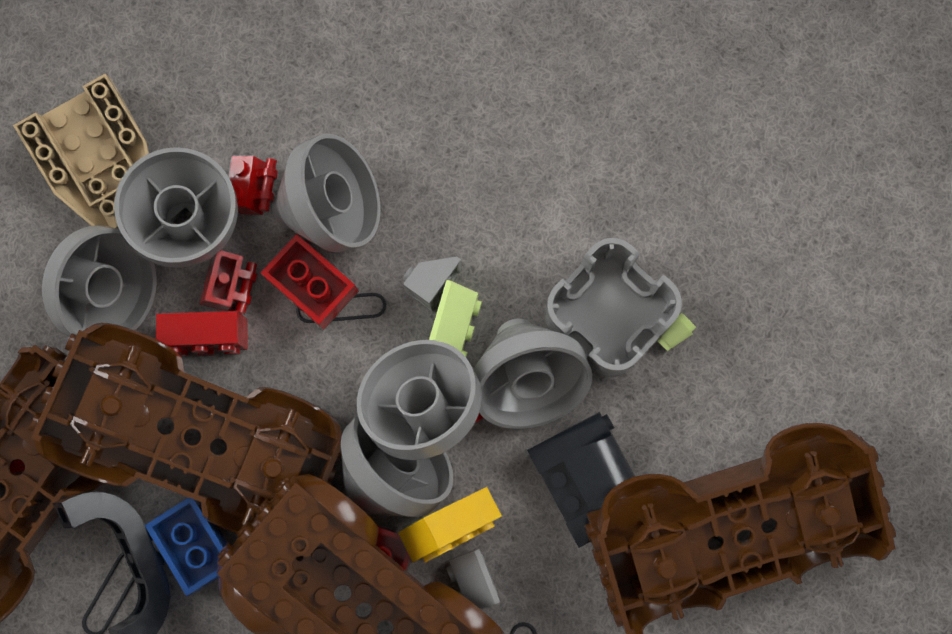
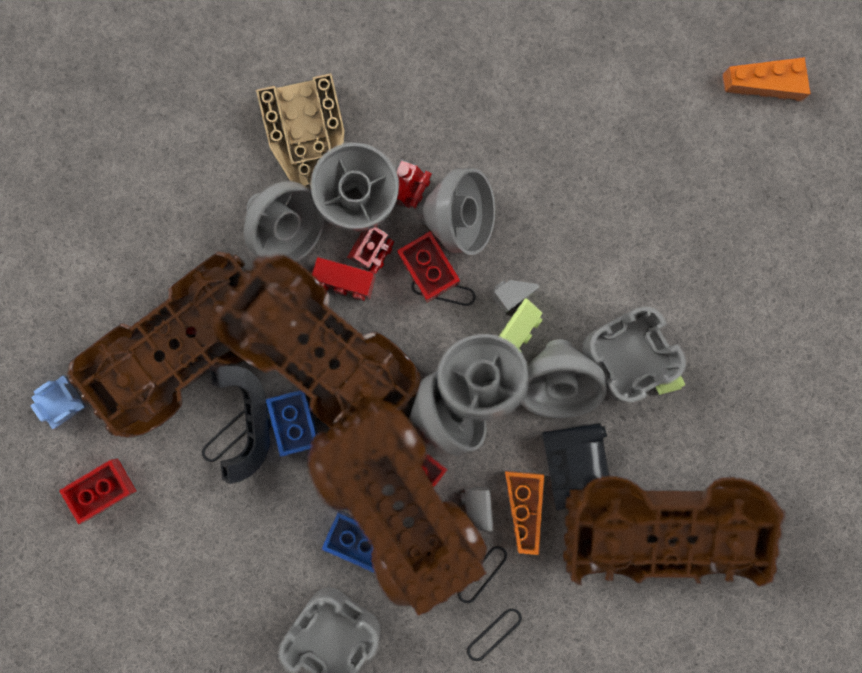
camera: 10 degrees right, 5 degrees up
(450, 526) = (474, 468): yellow brick -> none
(537, 550) = (526, 499): none -> orange wedge

